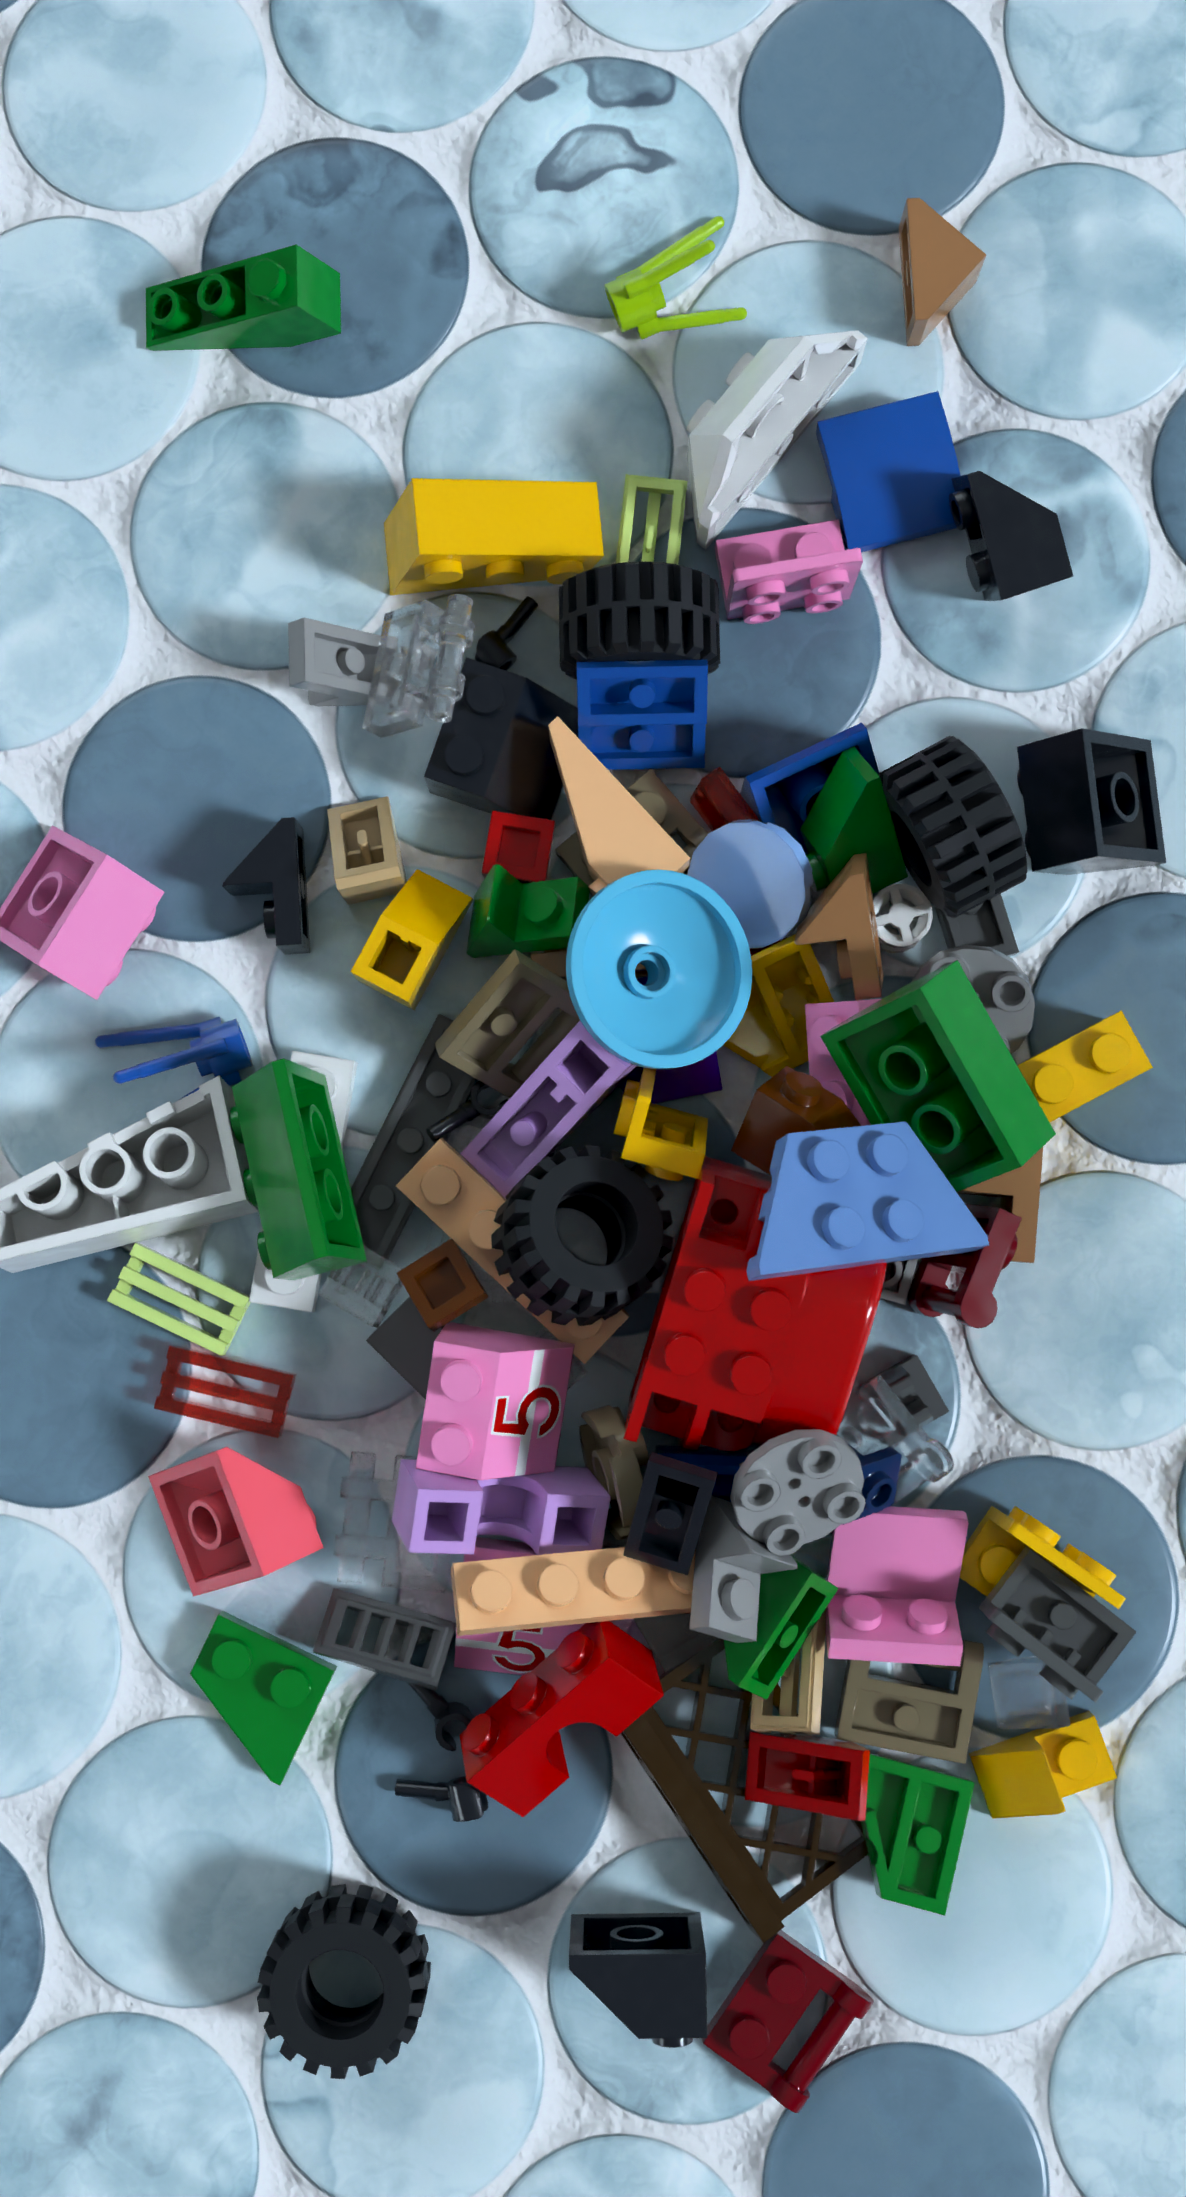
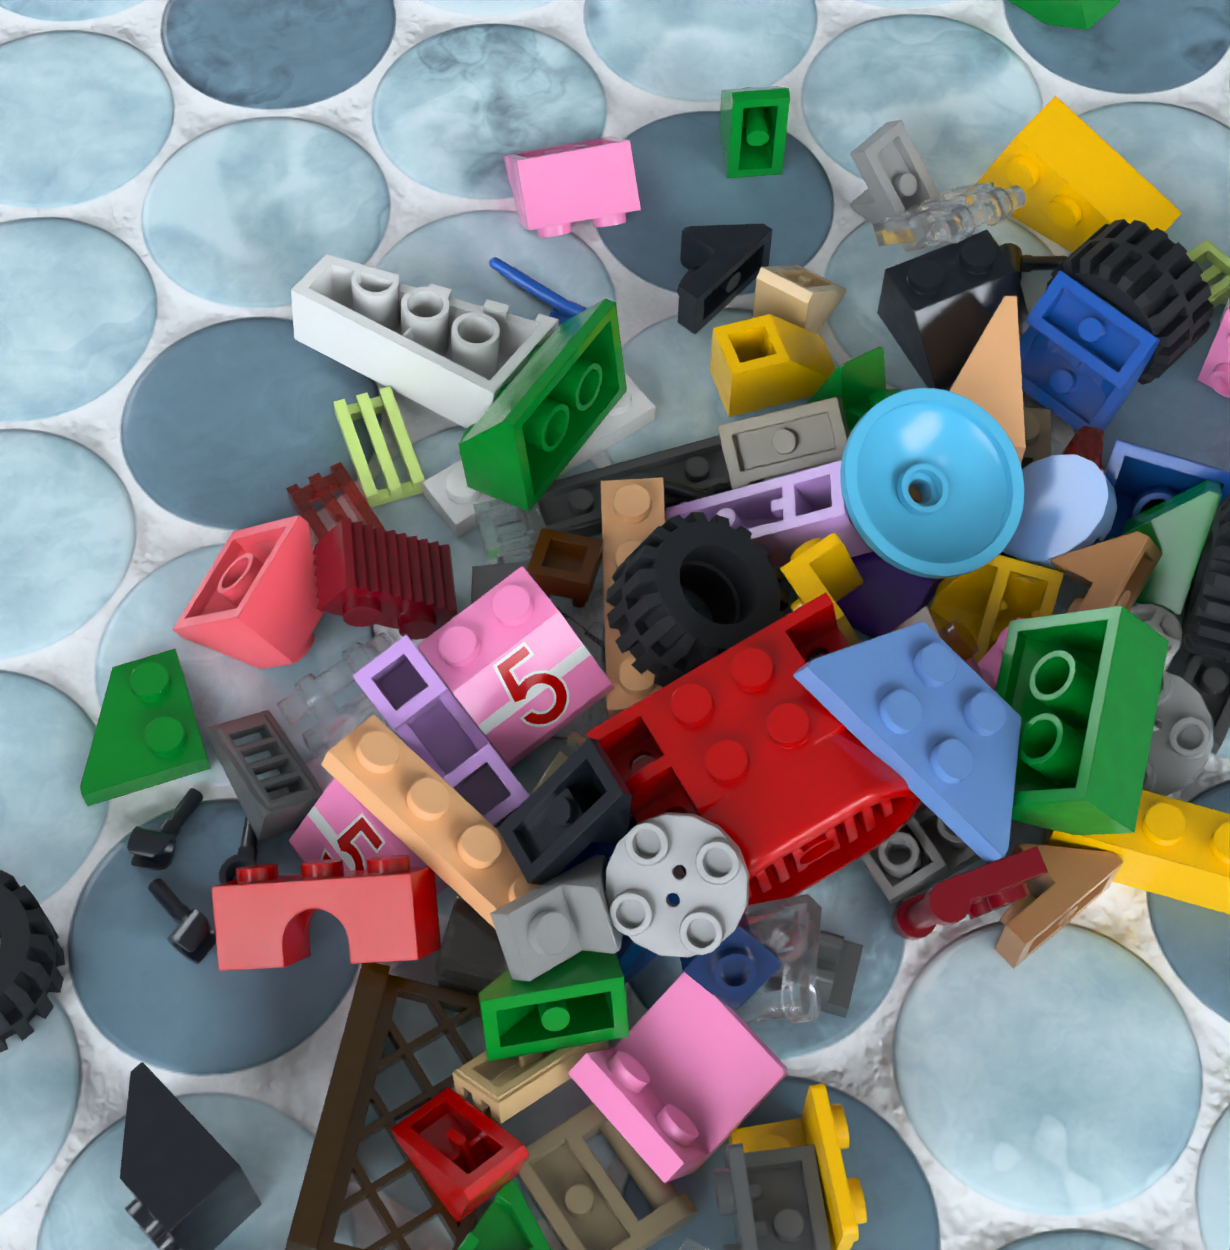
camera: 40 degrees right, 25 degrees down
(170, 715) = (754, 130): none -> green slope
(322, 1425) = (385, 579): none -> dark red brick
(371, 1764) = (156, 848): none -> black hand
(519, 846) = (912, 365): red tile -> none

